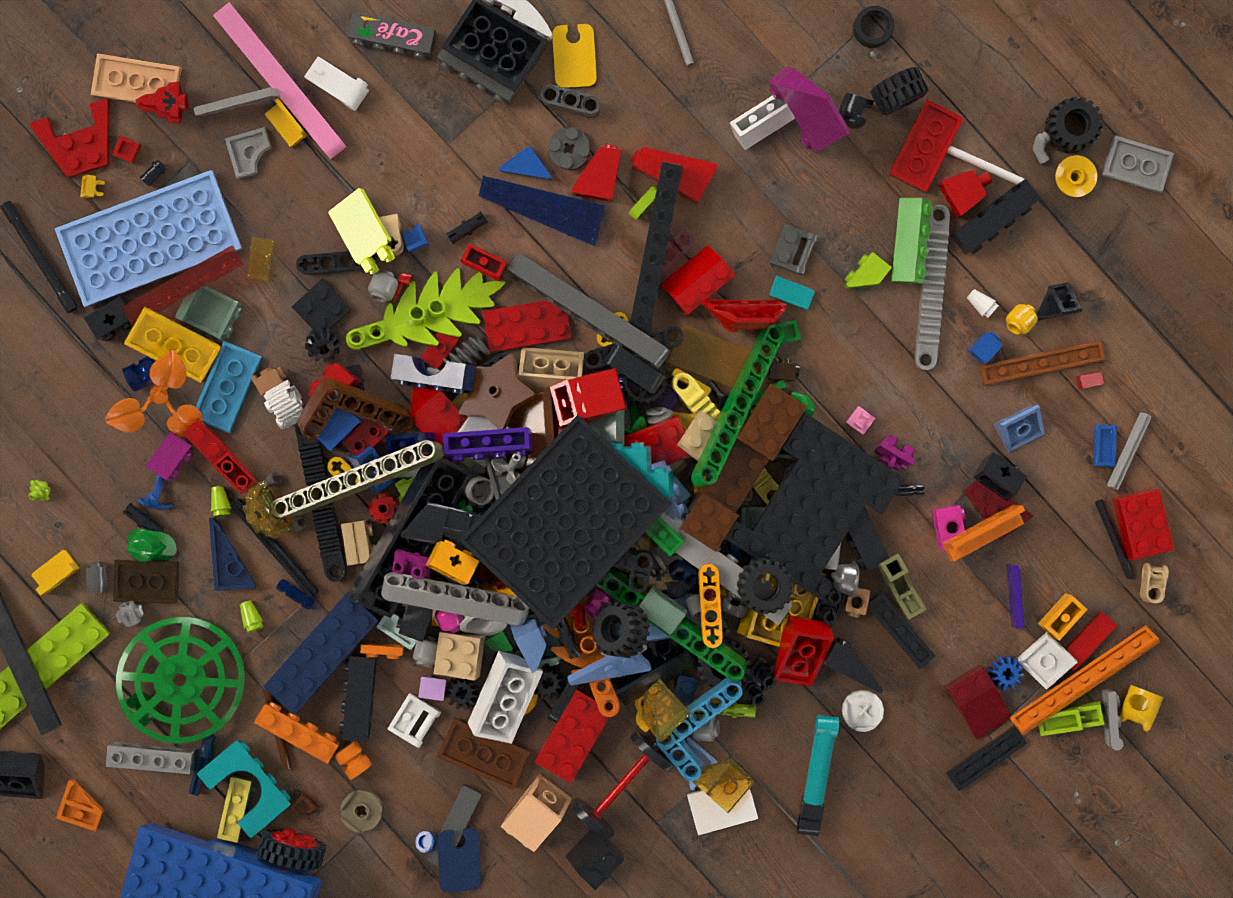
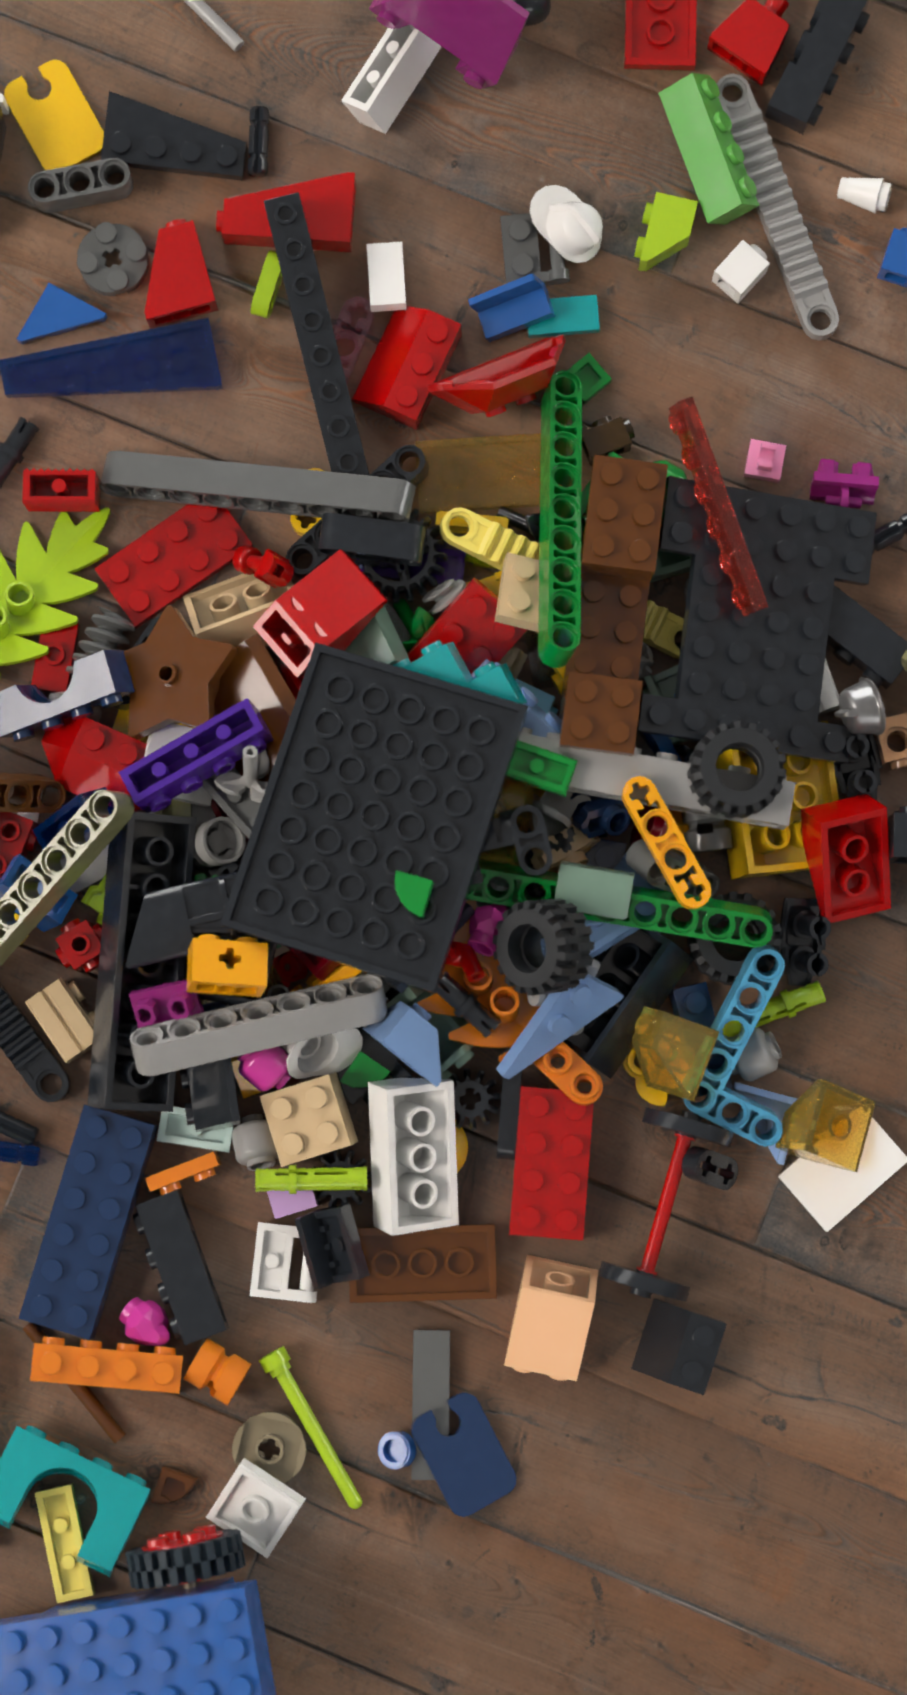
camera: 20 degrees left, 5 degrees down
(327, 717) = (145, 1322): none -> dark pink rock
(340, 837) = (256, 1507): none -> white tile
(385, 769) = (278, 1366): none -> lime piece
(441, 725) = (331, 1246): none -> black bracket
(446, 687) = (303, 1179): none -> lime pin
(566, 573) = (413, 892): none -> green tile
(573, 357) = (269, 568): none -> red leg
(627, 99) = (168, 143): none -> black wing
(653, 776) = (709, 1172): none -> black beam
(676, 121) = (258, 141): none -> black axle
(709, 228) = (386, 276): none -> white tile
(767, 277) = (512, 307): none -> blue panel
(817, 244) = (567, 223): none -> white piece
(822, 436) = (721, 520): none -> clear red plate
(897, 314) = (741, 270): none -> white brick

